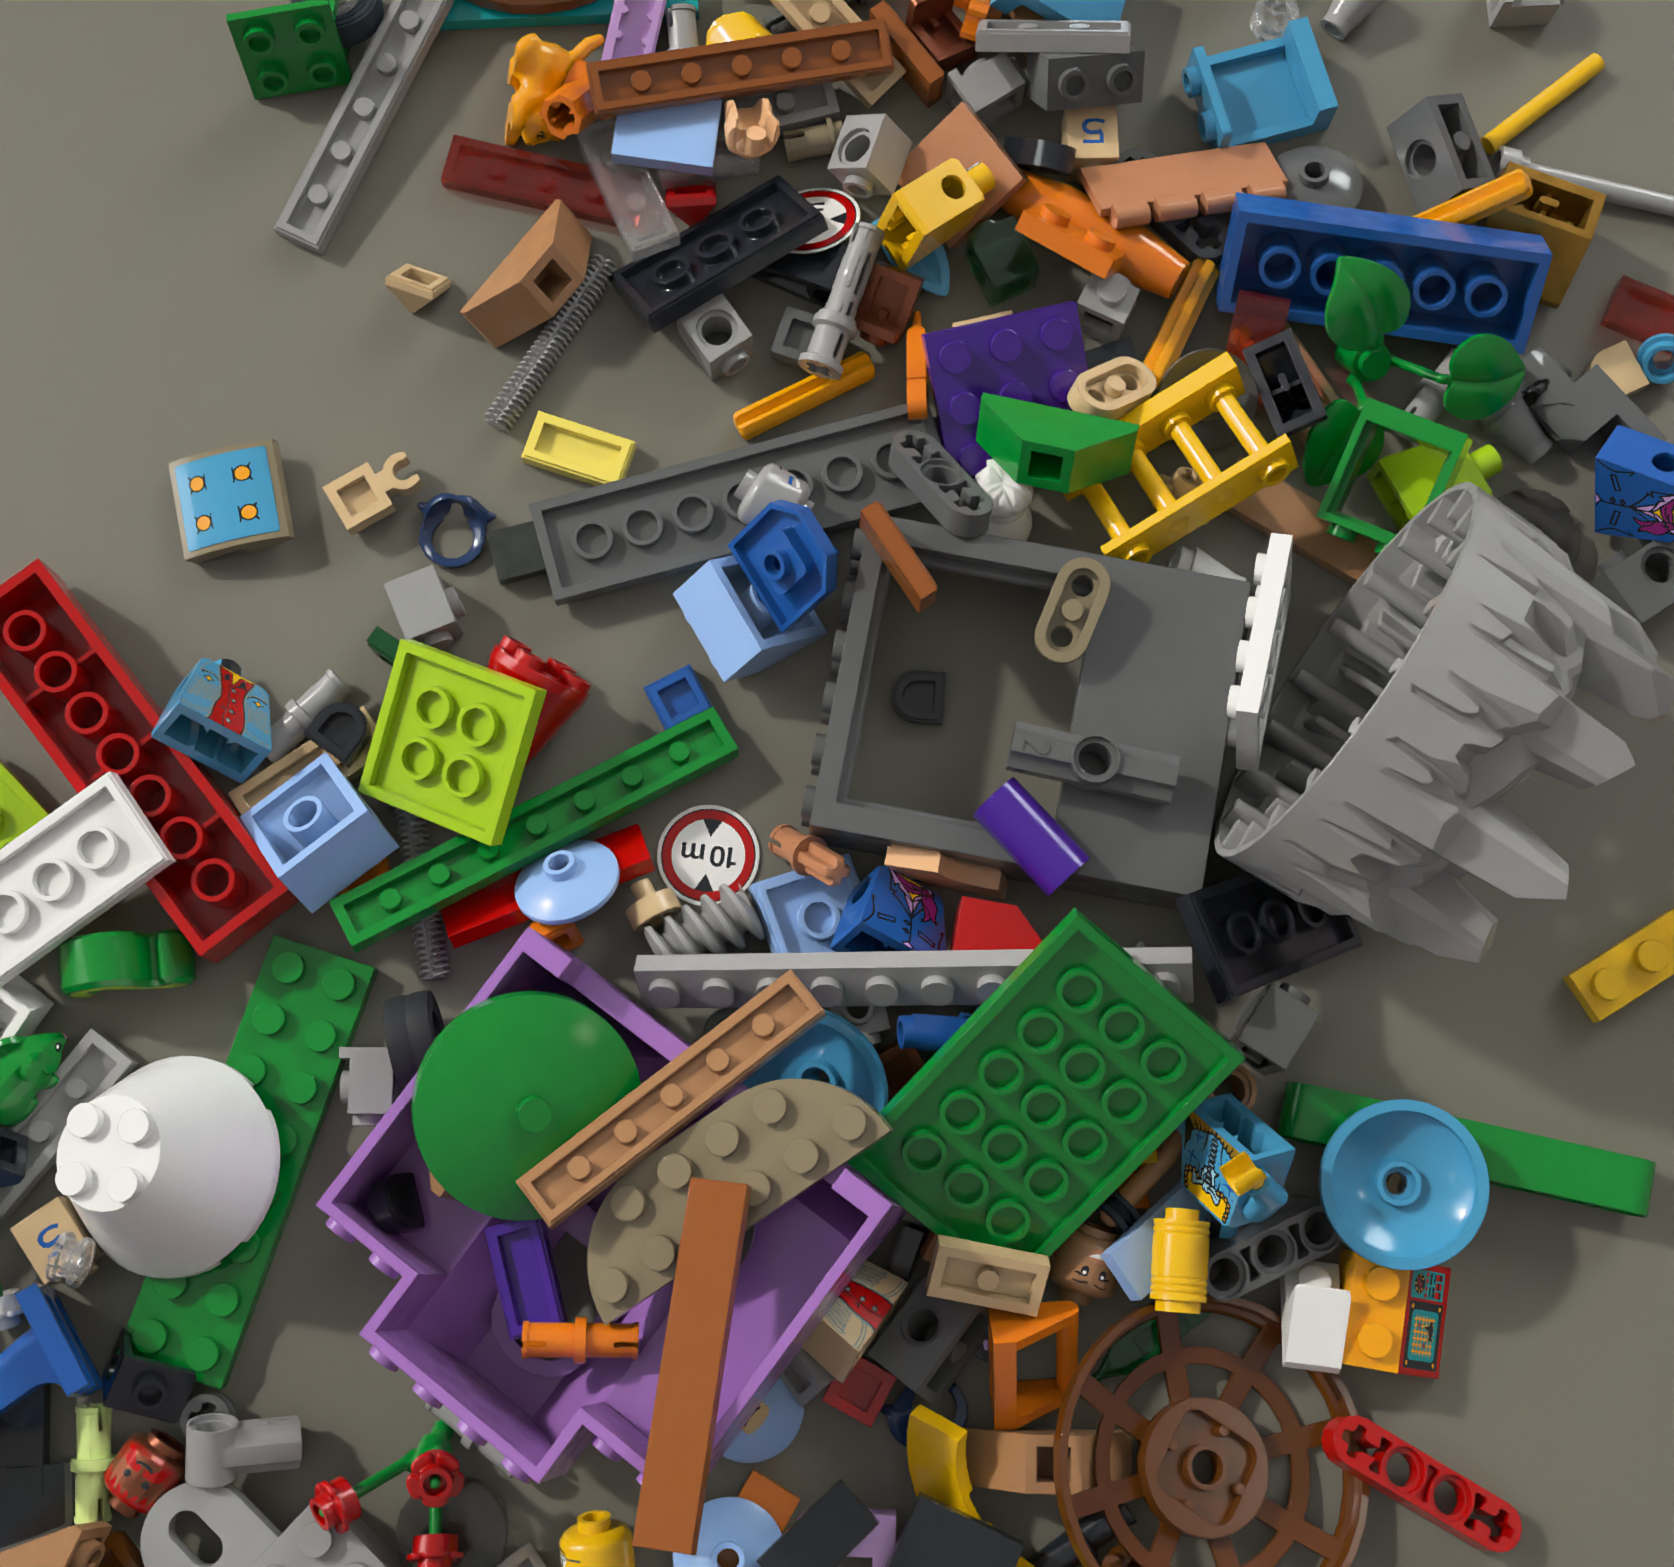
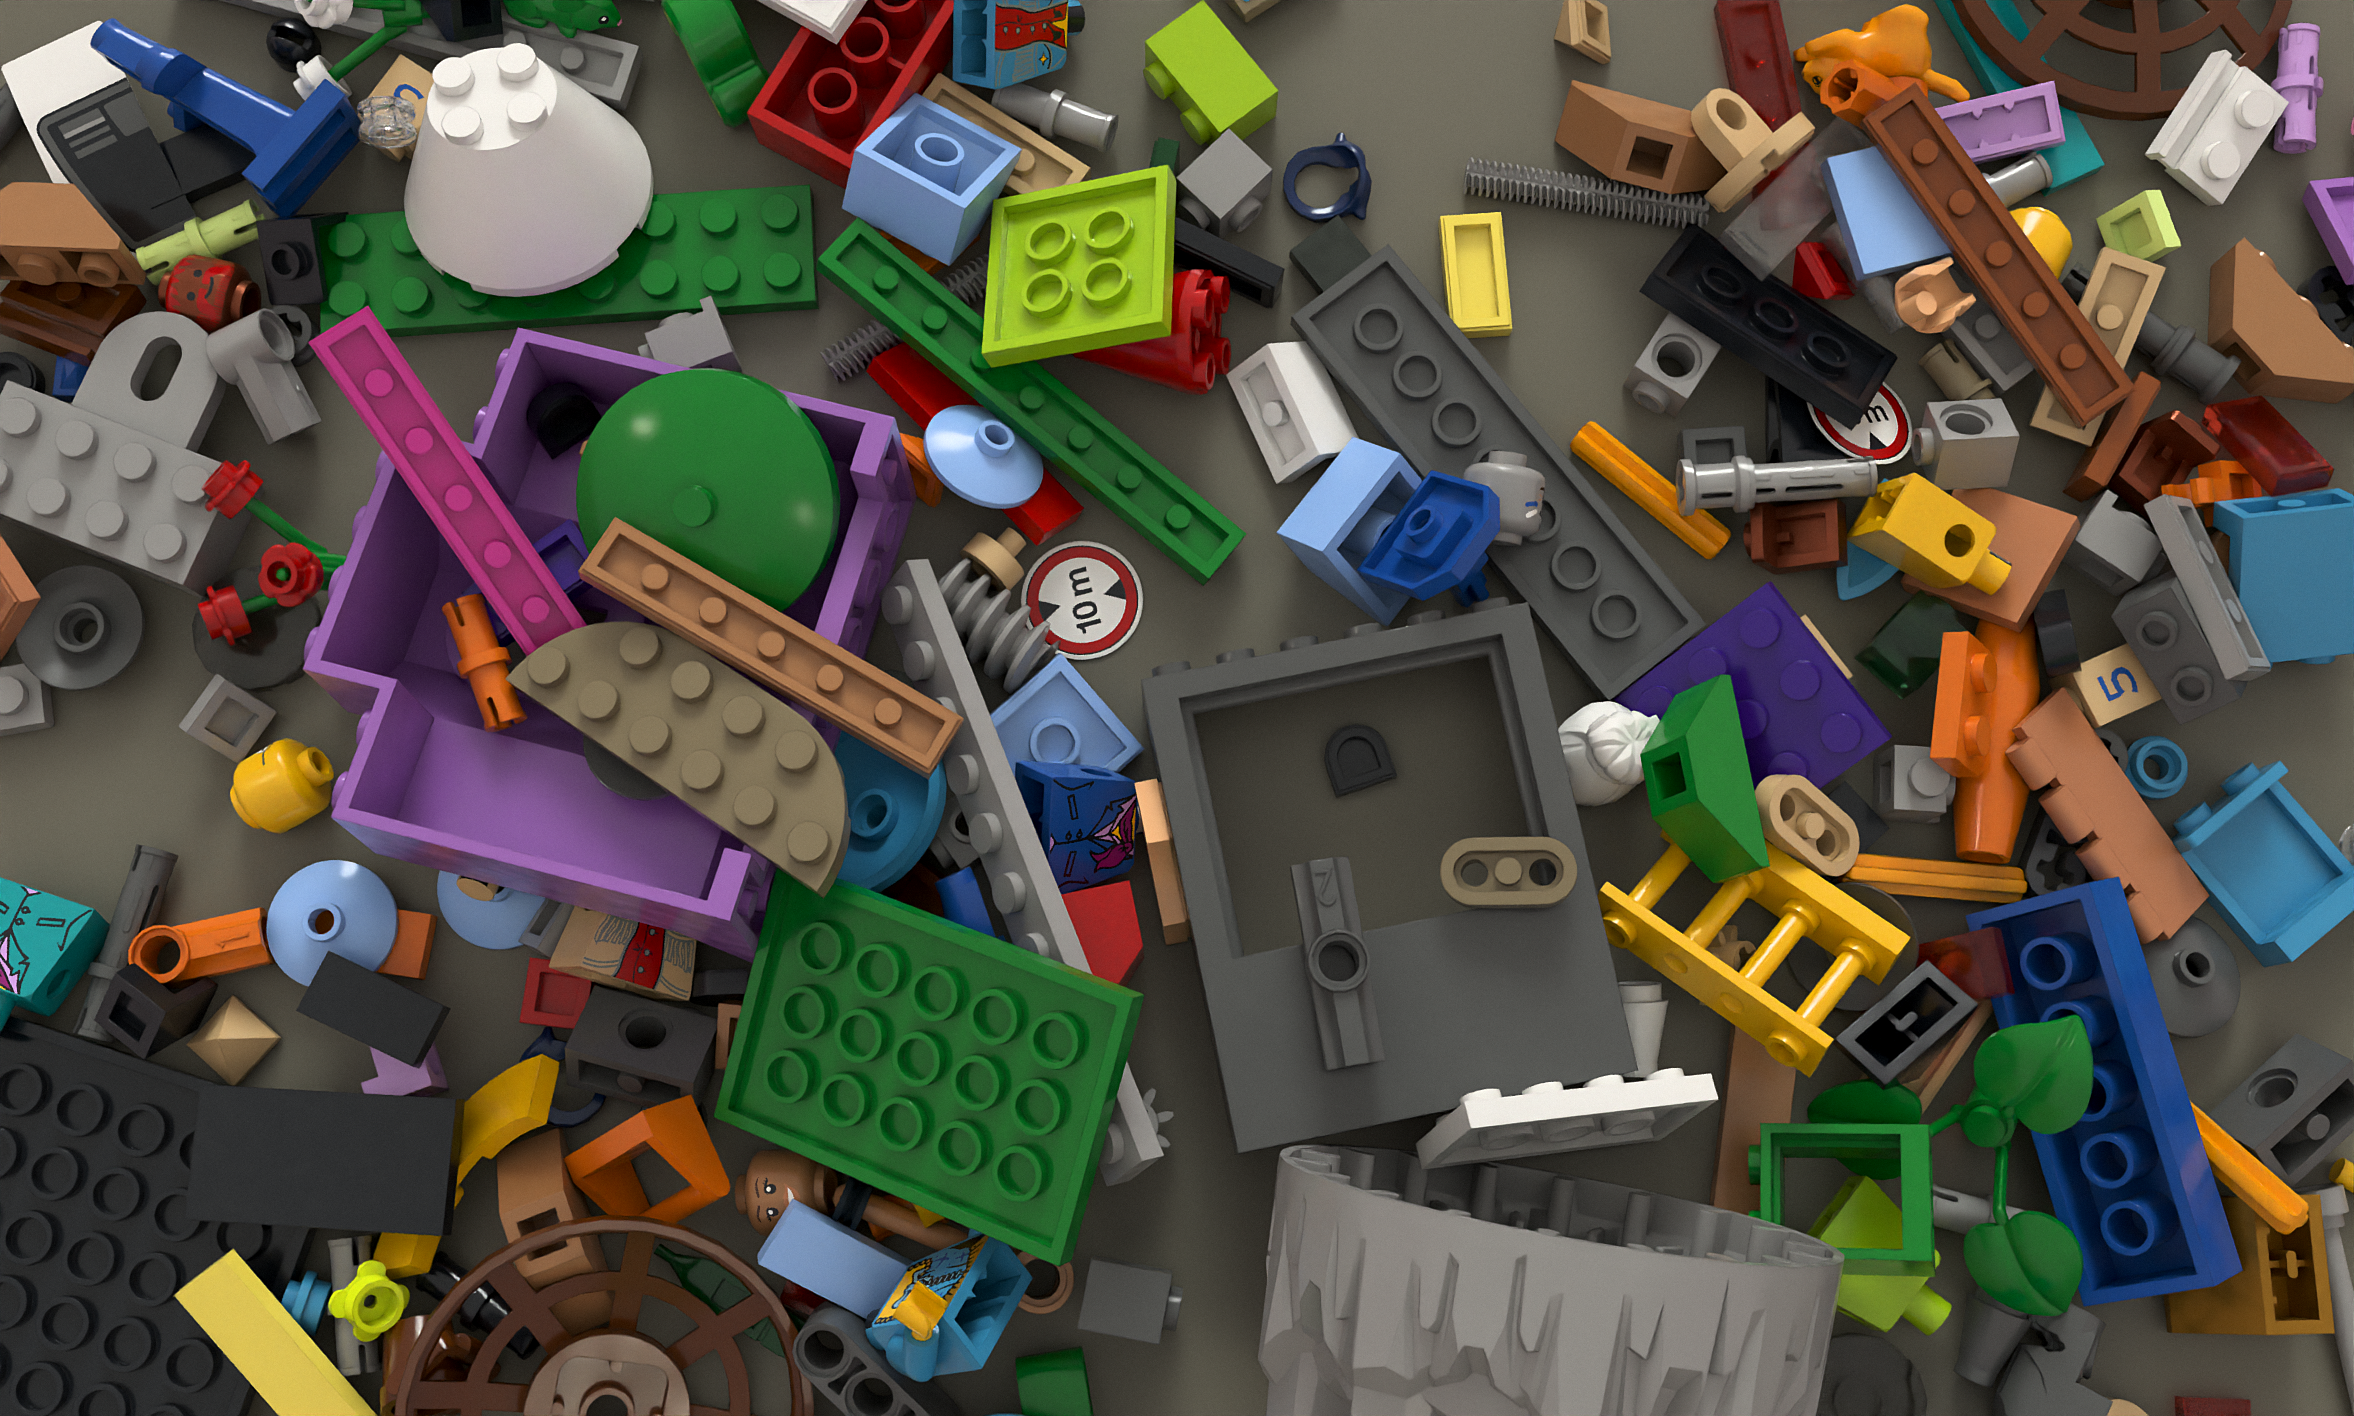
camera: 70 degrees right, 0 degrees up
(330, 584) = (1208, 77): none -> lime brick
(340, 731) = (1050, 155): black tile -> none
(364, 496) = (1325, 72): tan plate -> none
(409, 1030) = (761, 351): black tyre -> none
(425, 1308) = (446, 480): none -> dark pink tile
(505, 619) = (1247, 272): none -> black tile
(576, 206) = (1744, 146): none -> tan tile
(627, 632) = (1291, 408): none -> white panel
(677, 697) = (1243, 494): blue tile -> none
(692, 1367) = (478, 777): dark orange tile -> none
(808, 855) = (1117, 701): nougat axle -> none
(898, 556) = (1485, 650): dark orange tile -> none
(916, 371) = (1710, 605): orange piece -> none
(957, 504) = (1580, 677): dark grey beam -> none
(987, 1275) = (717, 1076): tan plate -> none
(1031, 836) = (1227, 928): dark purple brick -> none
(1163, 124) = (2172, 766): none -> dark azure plate
(1179, 1261) = (815, 1290): yellow head -> none
(1258, 935) = (1212, 1228): black tile -> none

